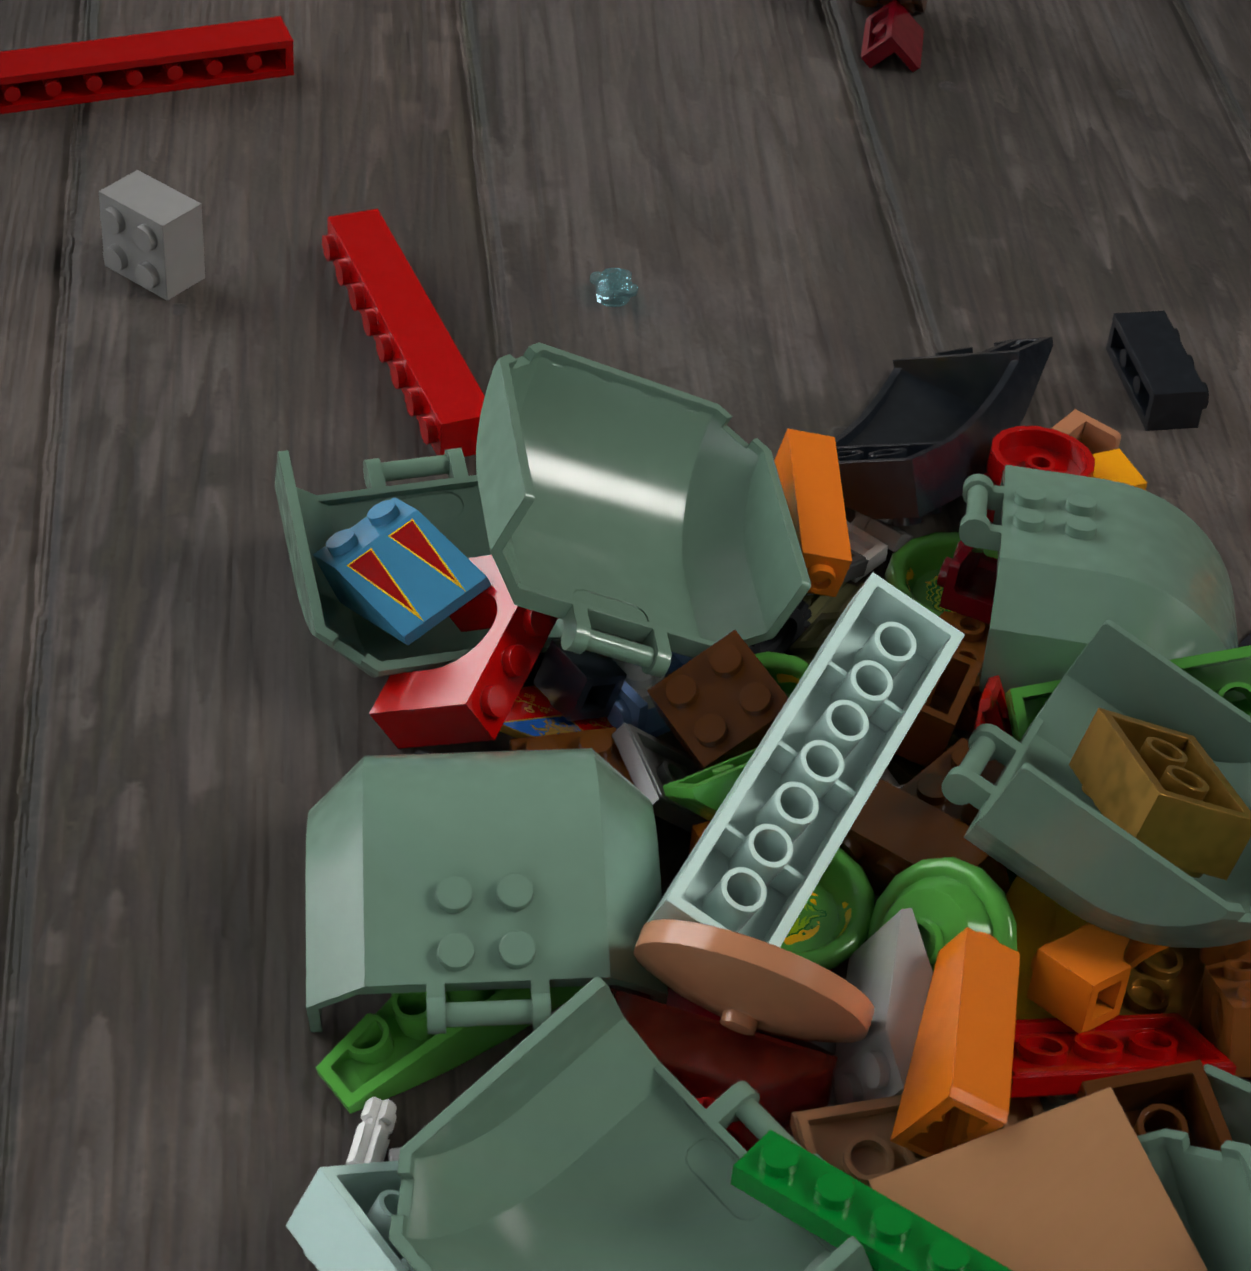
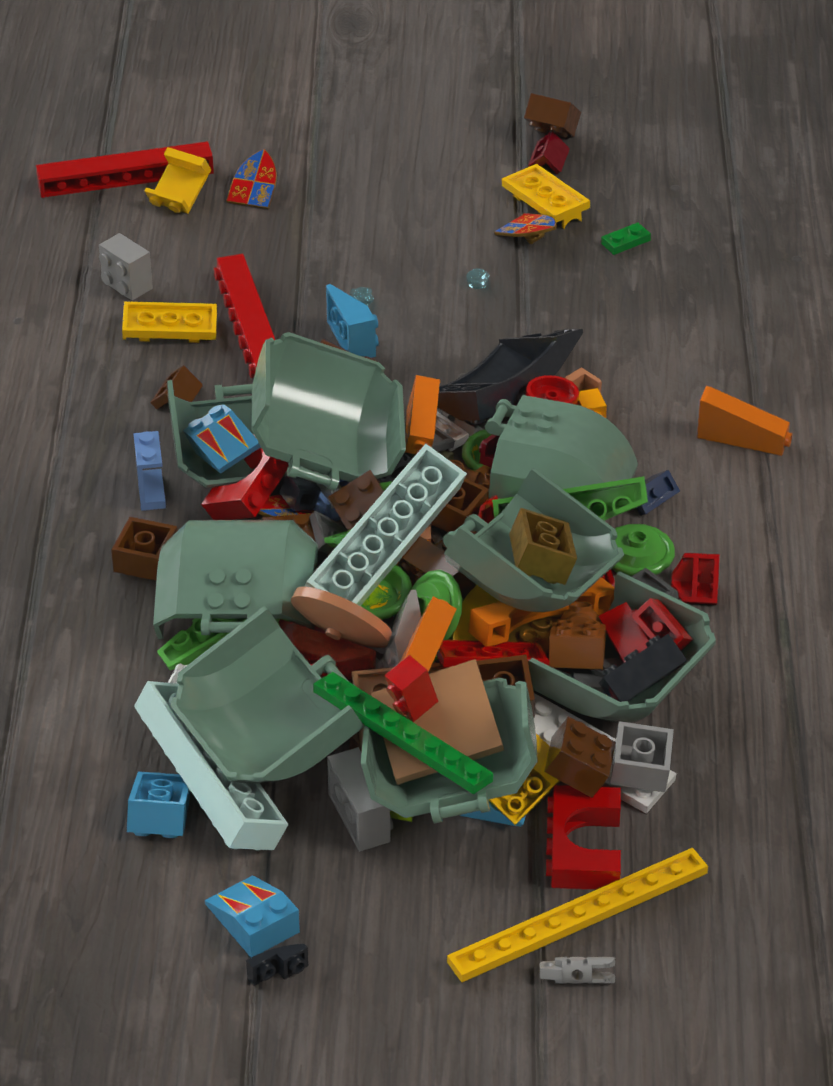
camera: 10 degrees right, 0 degrees up
(237, 83) = (180, 181): none -> yellow panel
(246, 623) = (149, 481): none -> medium blue panel
(249, 337) = (169, 321): none -> yellow piece
(256, 819) = (139, 547): none -> reddish brown brick
(258, 478) = (184, 385): none -> reddish brown panel
(375, 85) = (254, 181): none -> shield
(609, 323) = (351, 322): none -> dark azure slope
(822, 250) = (477, 278): none -> clear light blue plate
(897, 156) = (528, 225): none -> shield
(911, 104) = (546, 194): none -> yellow piece
(989, 1179) = (411, 688): none -> red brick
(1070, 178) = (626, 238): none -> green plate
(1156, 371) = (636, 347): black brick -> none

